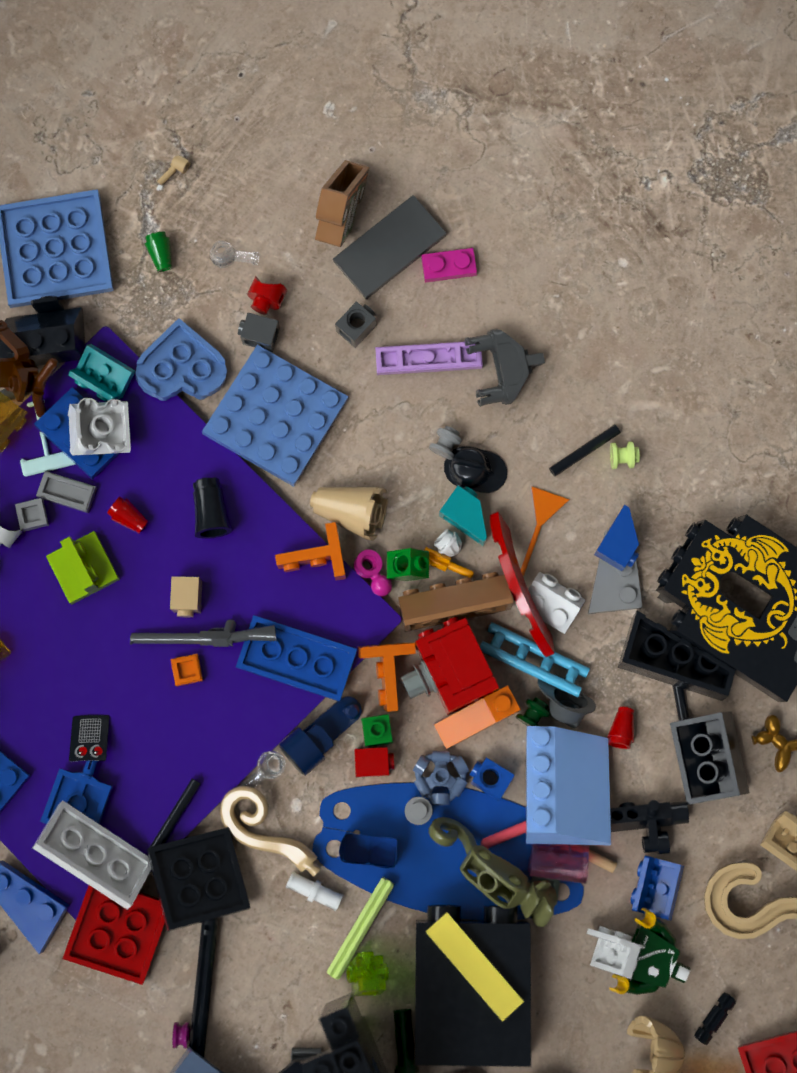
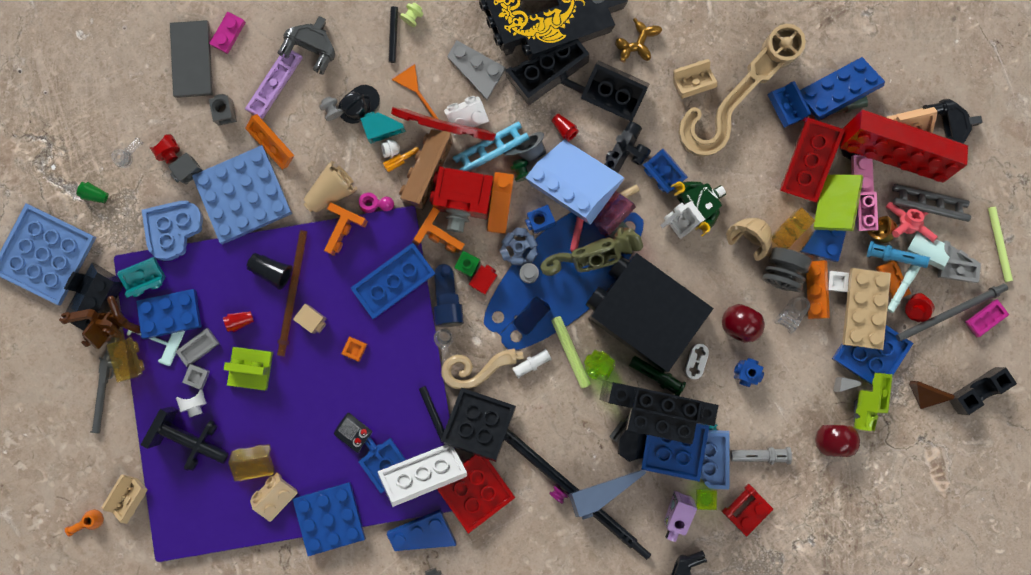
camera: 60 degrees left, 5 degrees up
(99, 427) = (172, 300): white slope -> none
(140, 582) = (283, 342): none -> clear orange bar
(178, 163) = (46, 145): tan hand -> none
(216, 636) = (346, 319): dark grey piece -> none
(339, 203) = (141, 66): medium nougat brick -> none
(358, 402) = (272, 144): none -> orange plate
(408, 564) = (385, 179): green brick -> none
(474, 966) = (638, 300): light yellow tile -> none
(620, 542) = (459, 50): blue slope -> none
(715, 1018) = (756, 191): black axle -> none

